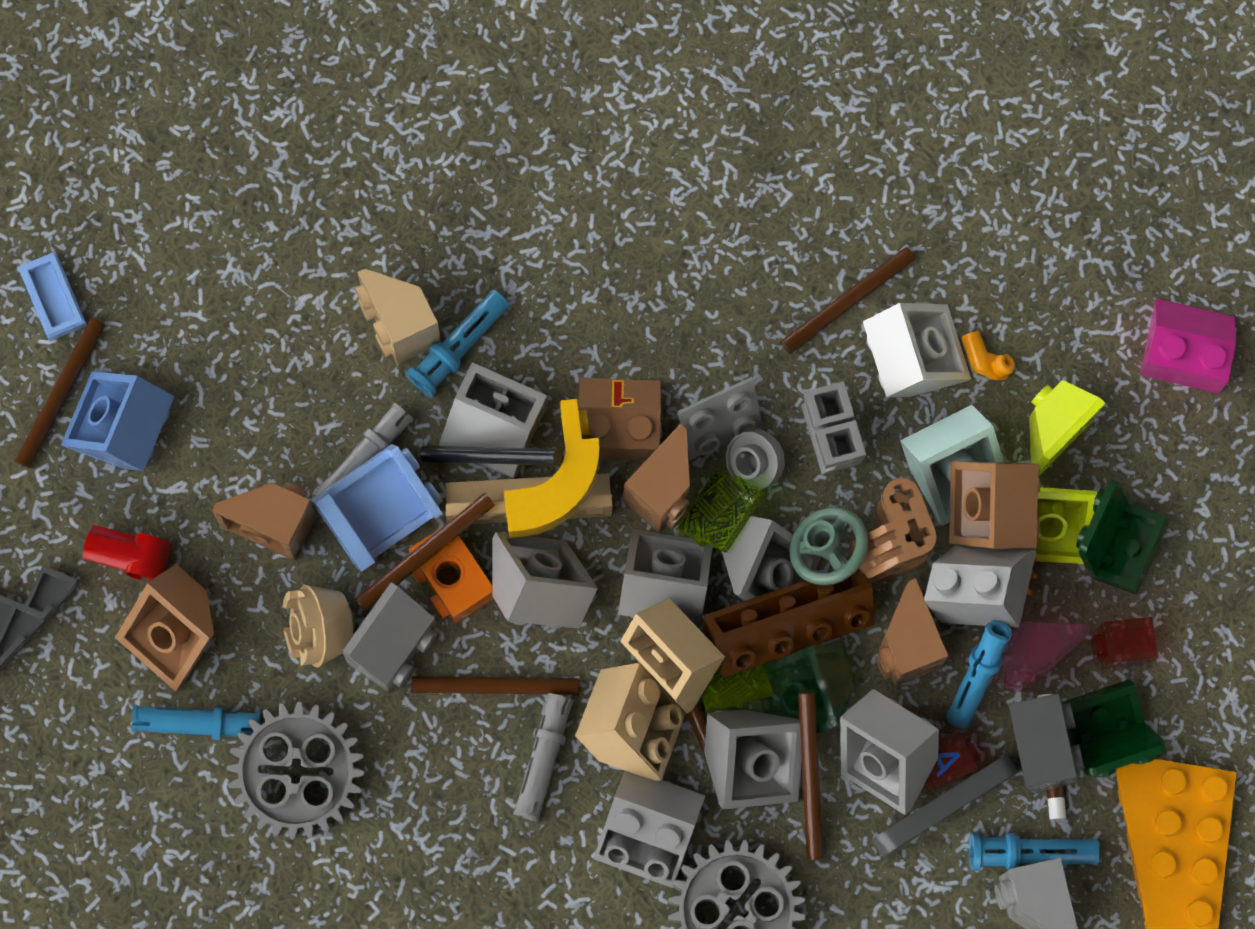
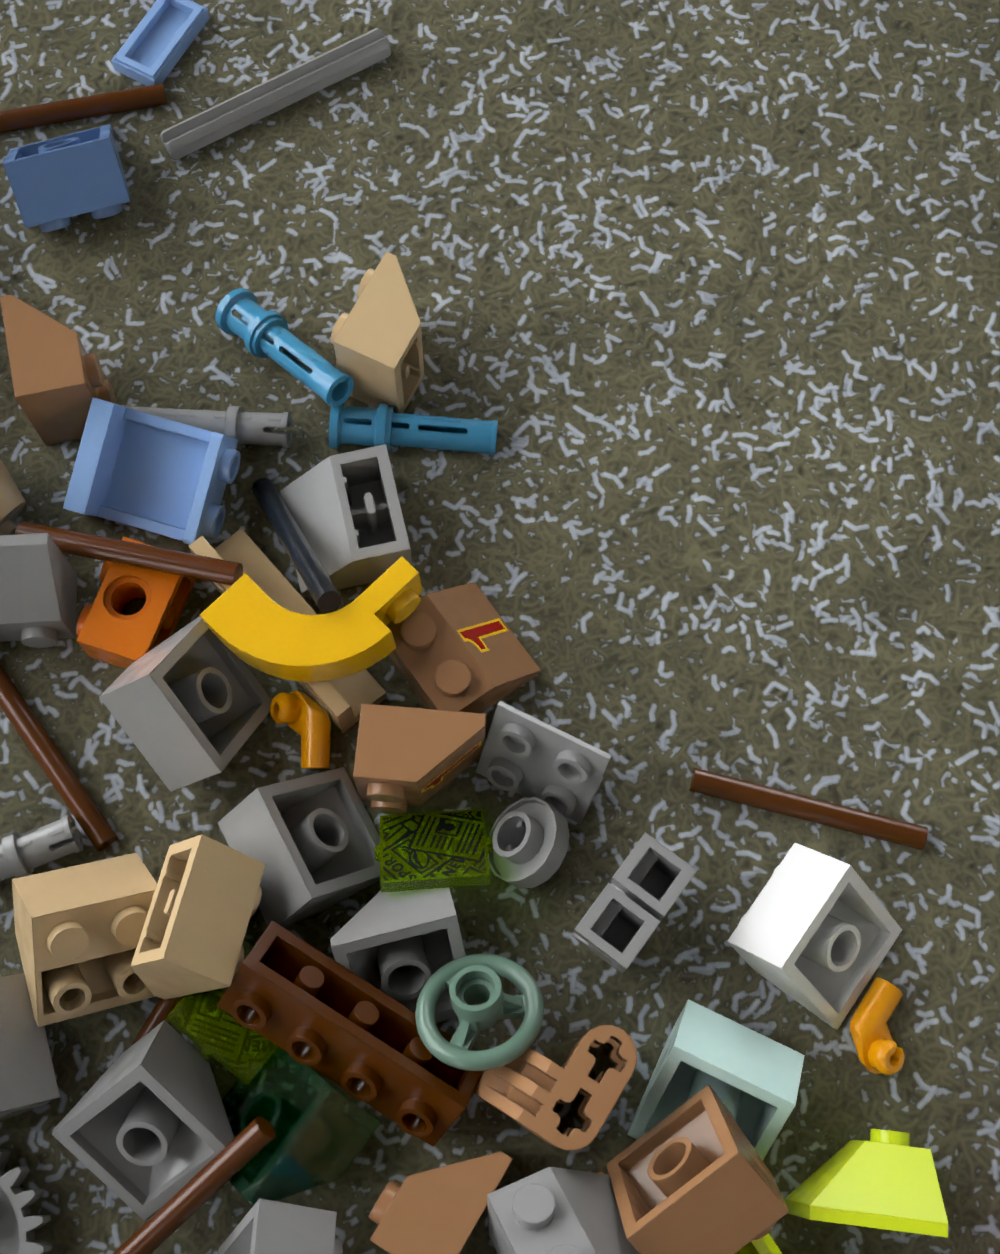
camera: 55 degrees right, 5 degrees down
(155, 254) = (275, 94): none -> light grey axle
(335, 379) = (324, 377): none -> dark azure pin
(594, 527) = (309, 722): none -> light orange arm

